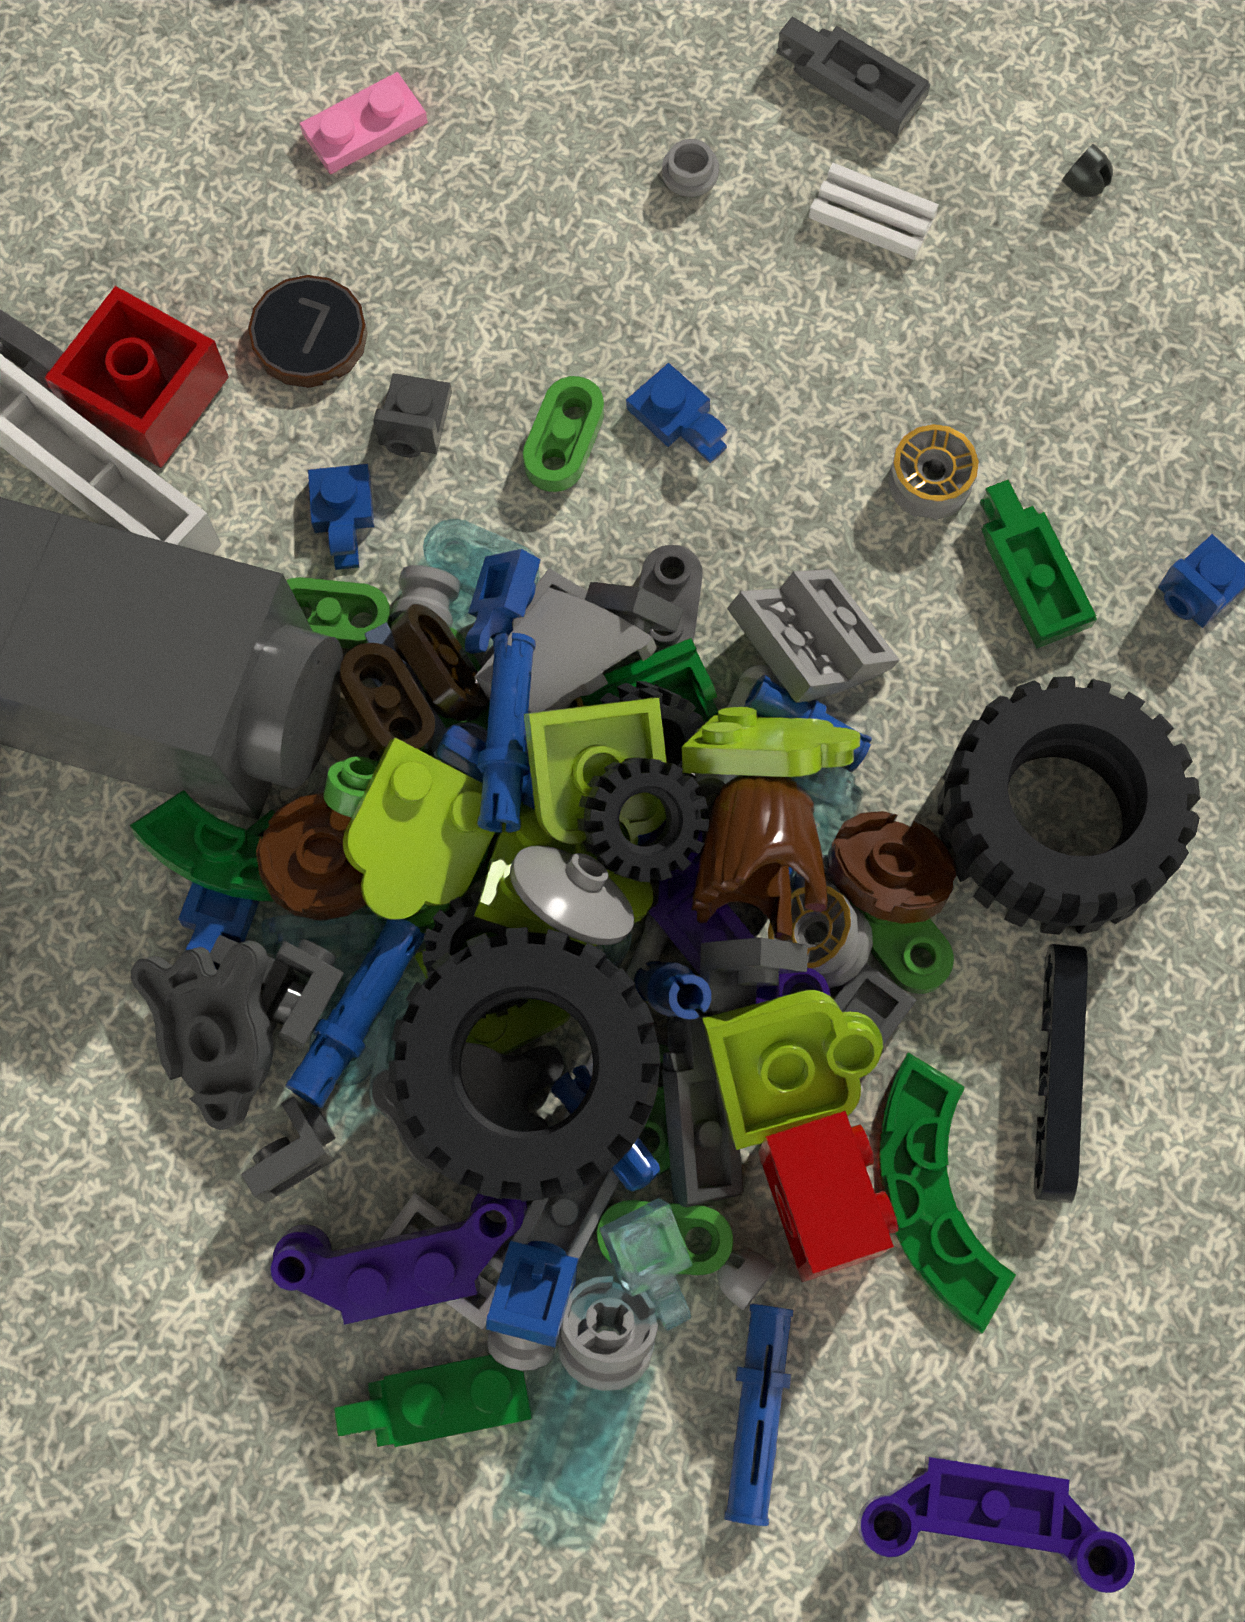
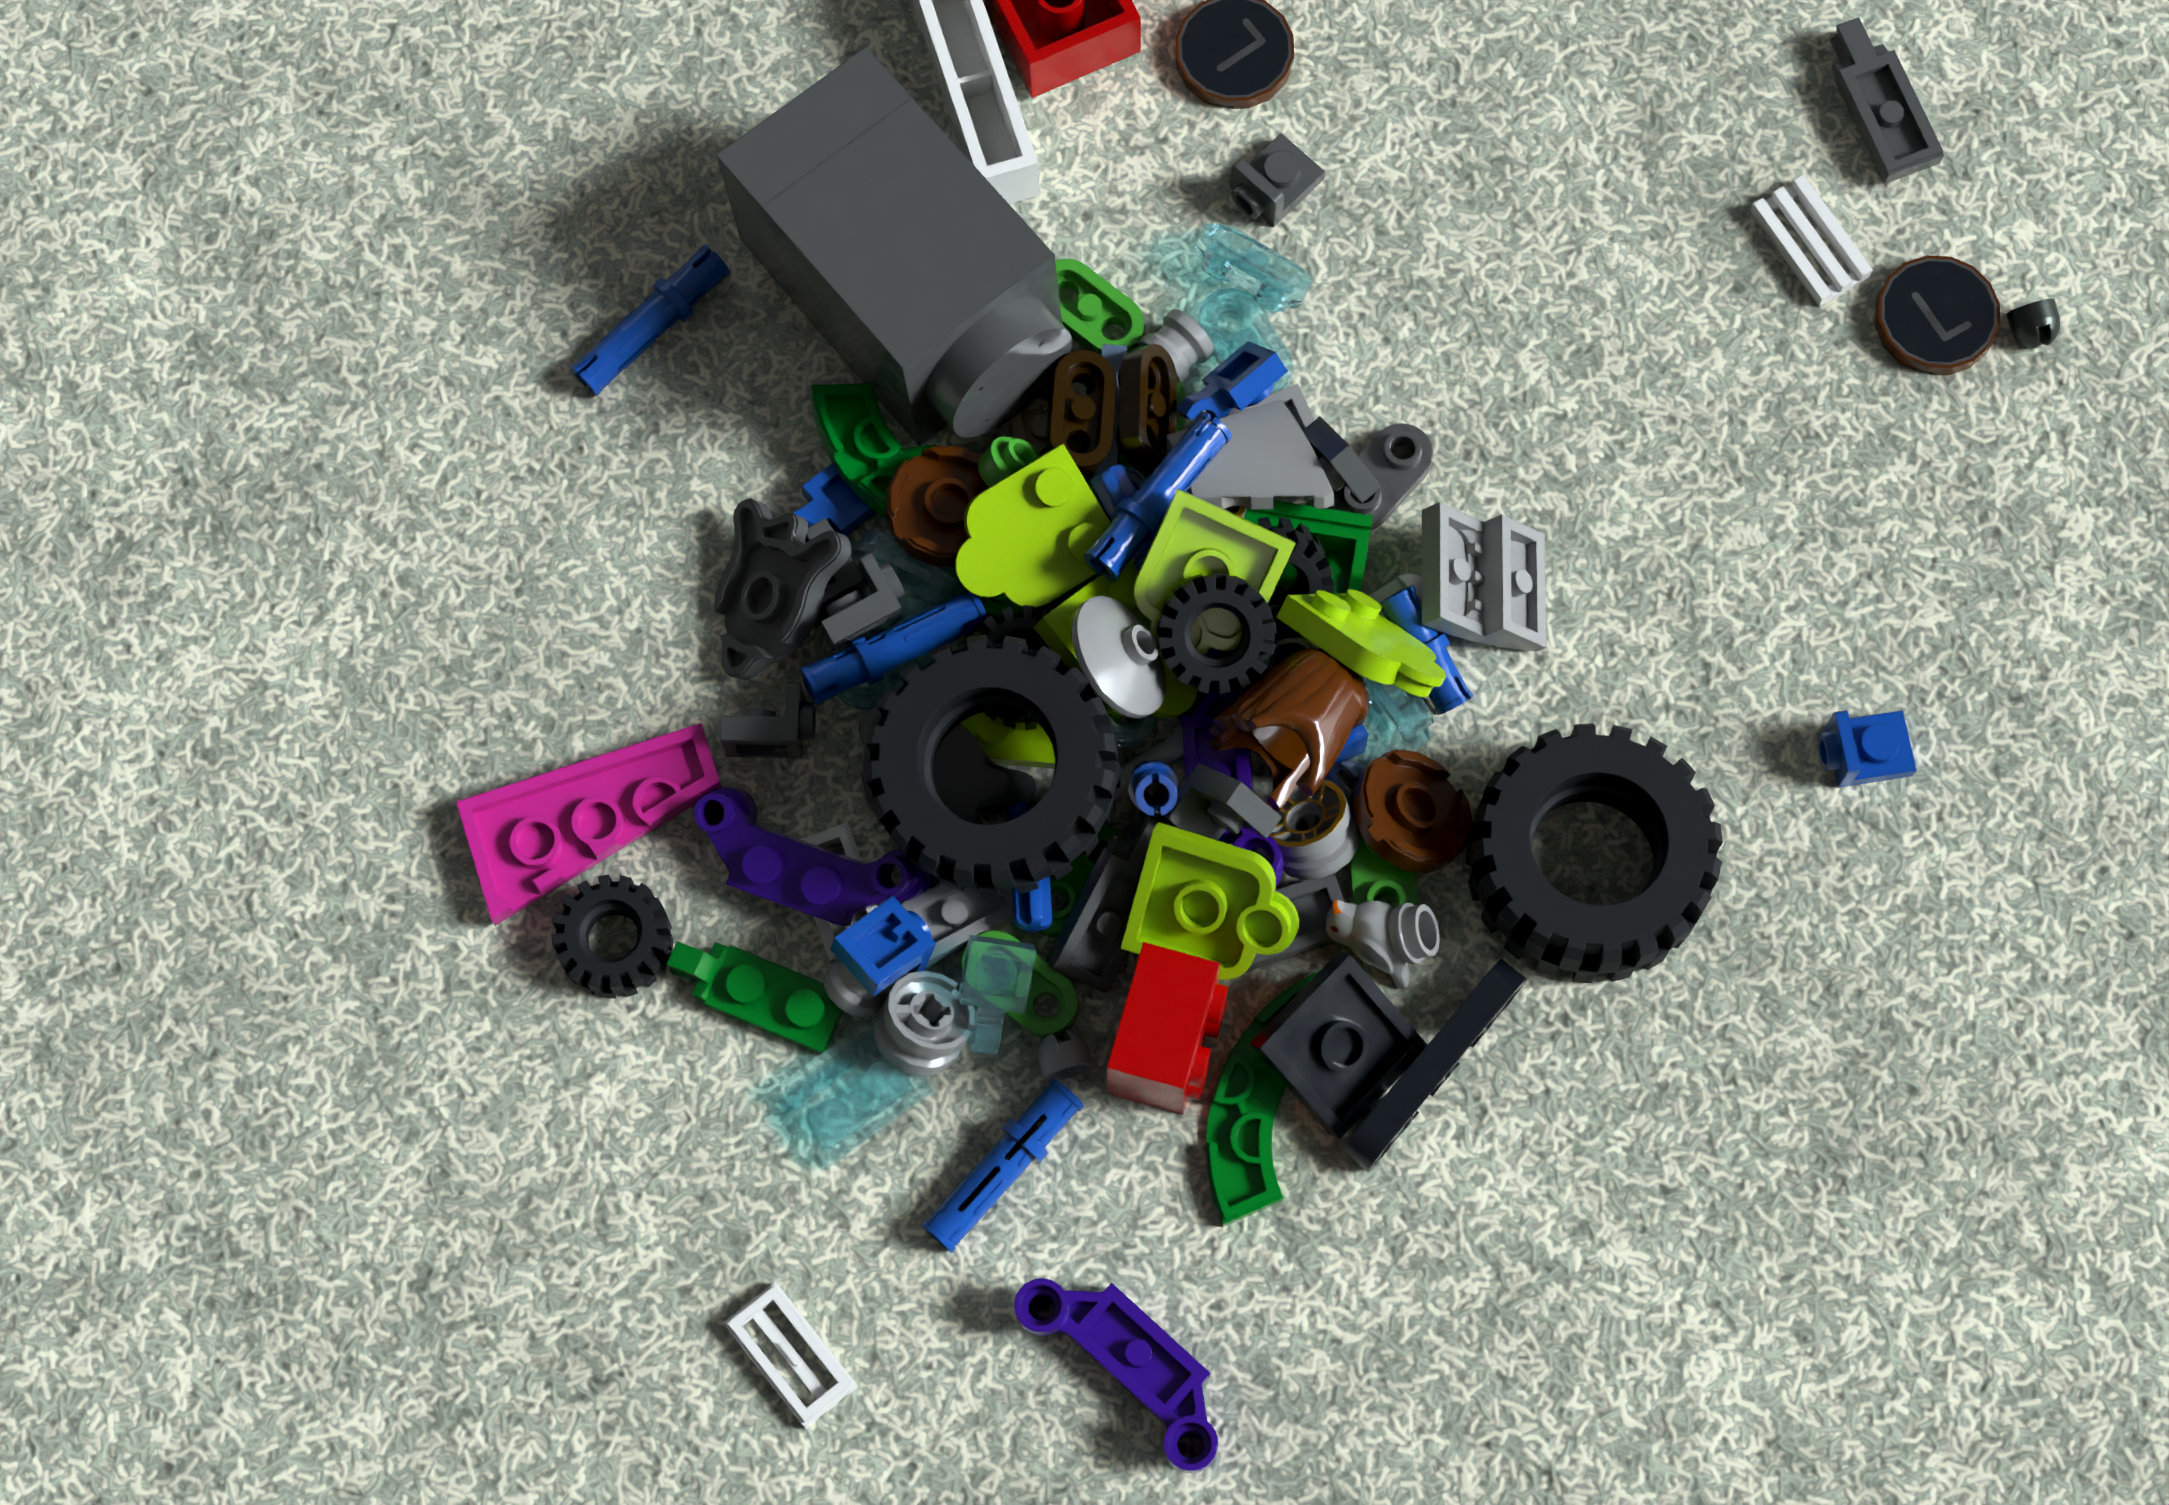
camera: 35 degrees right, 0 degrees up
(158, 1360) = (571, 818): none -> dark pink wing
(228, 1434) = (600, 901): none -> black tyre
(340, 506) = (1159, 223): blue plate -> none
(421, 496) = (1238, 258): none -> clear light blue plate
(563, 437) = (1388, 275): bright green plate -> none
(677, 408) = (1505, 311): blue plate -> none
(690, 168) = (1671, 103): light grey plate -> none
(940, 451) = (1713, 493): light grey wheel -> none
(948, 987) = (1385, 934): none -> light grey animal
(974, 1109) = (1339, 1044): none -> black plate
(1010, 211) = (1937, 315): none -> black tile
(1034, 568) = (1720, 643): green hinge -> none

